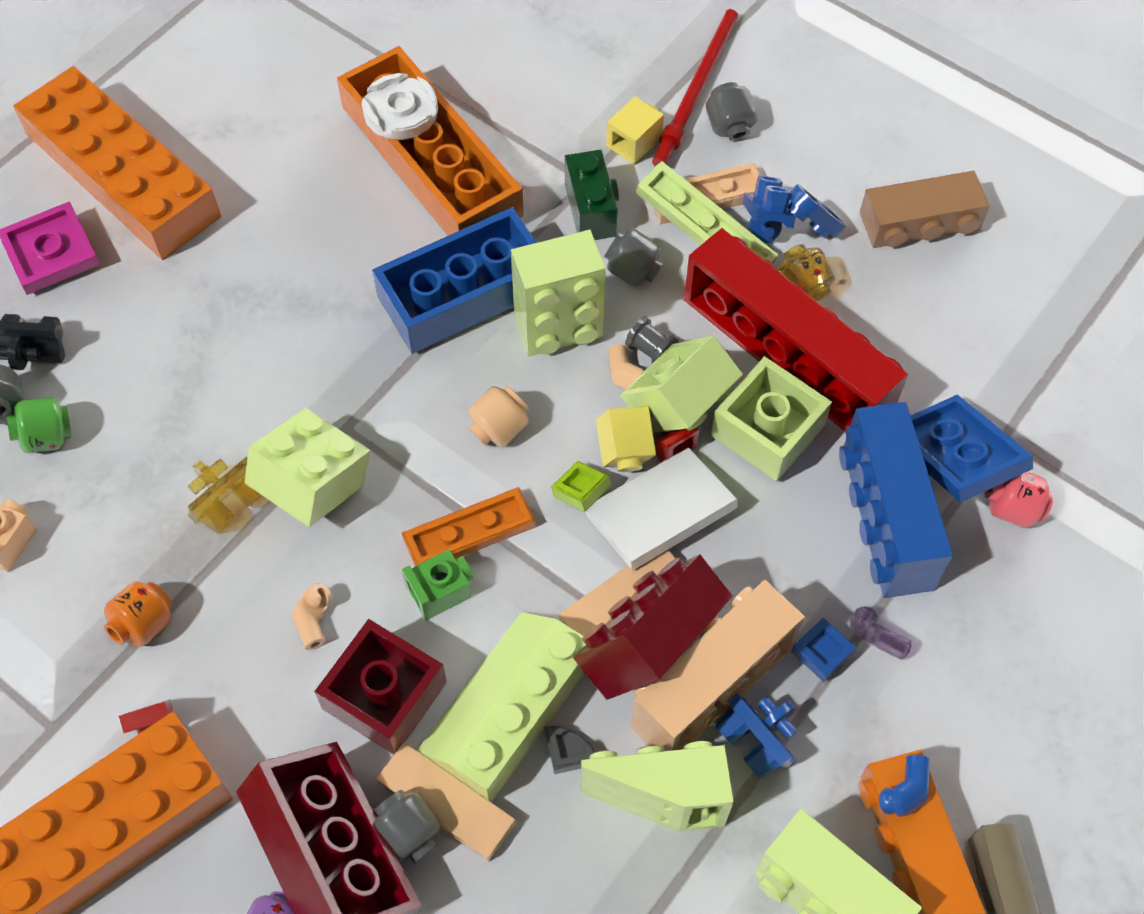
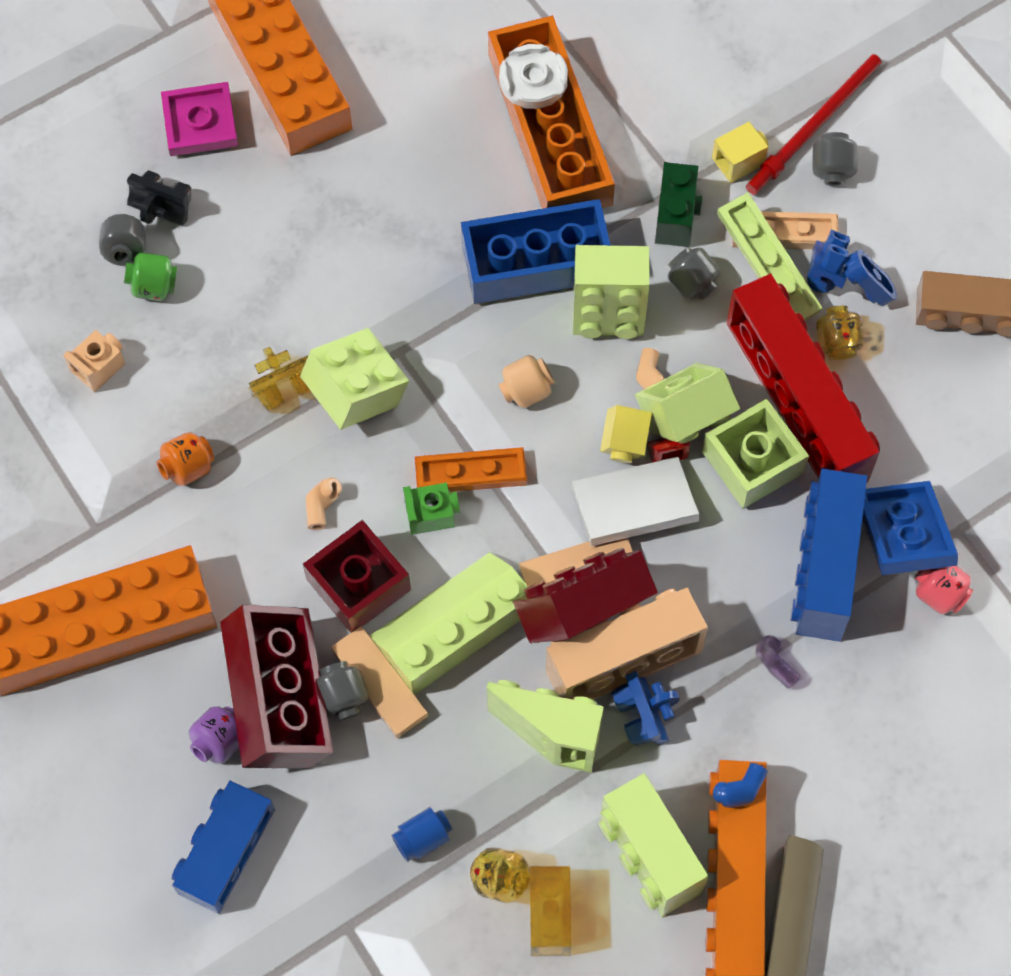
camera: 20 degrees right, 5 degrees up
(145, 717) = (168, 543): red plate -> none
(566, 749) = (486, 670): dark grey tile -> none
(581, 486) = (575, 462): lime tile -> none
(649, 339) = (679, 351): dark grey bush -> none
(823, 649) = (724, 660): blue plate -> none

